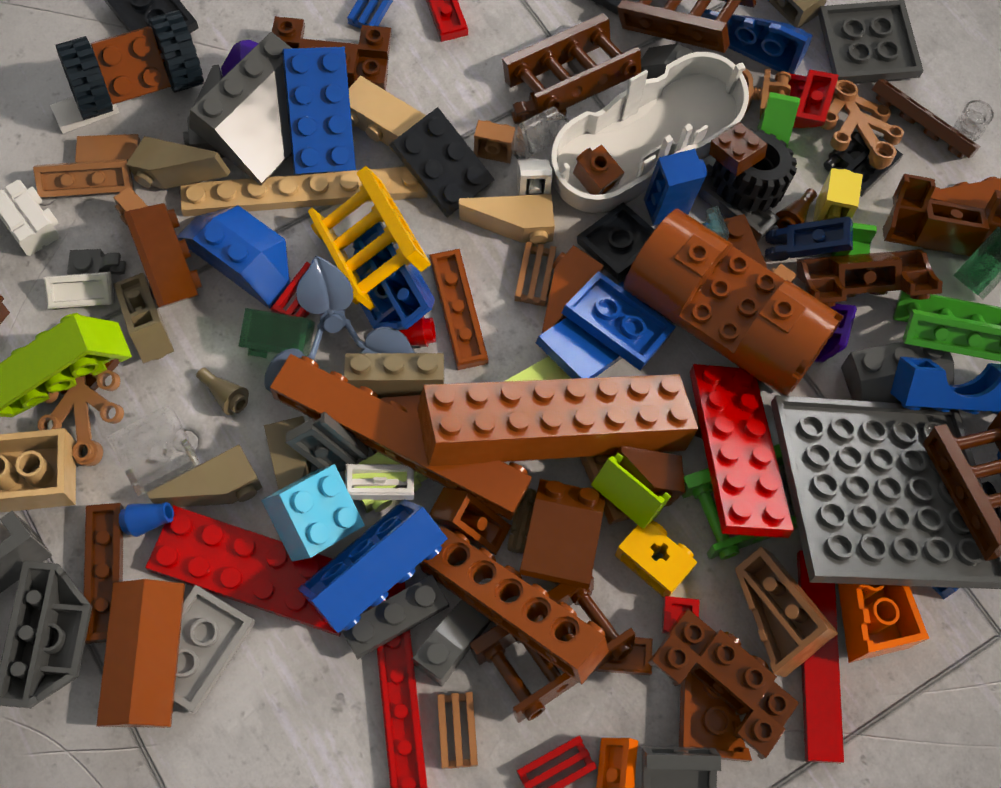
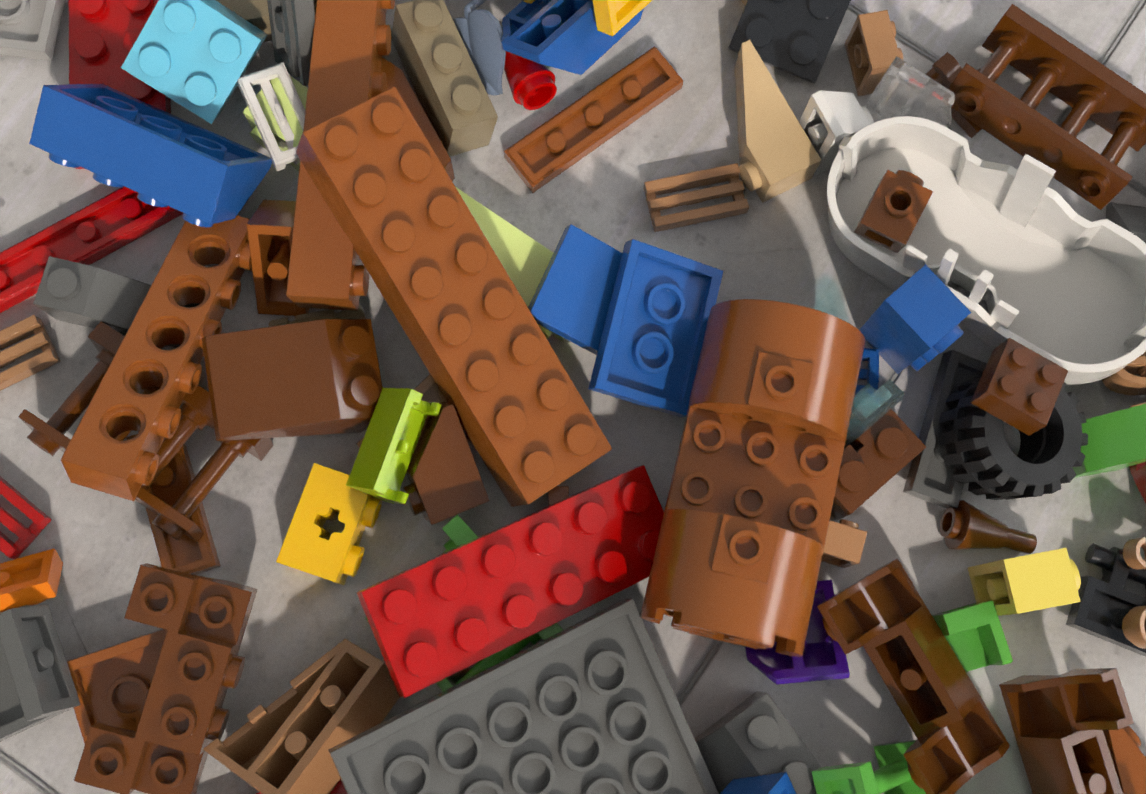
camera: 65 degrees right, 10 degrees up
(396, 616) = (110, 217): dark grey plate -> none
(569, 276) = (704, 236): dark orange slope -> none
(616, 239) = (805, 276): black plate -> none
(674, 607) = (272, 585): red plate -> none
(810, 239) = (940, 569): dark blue hinge -> none

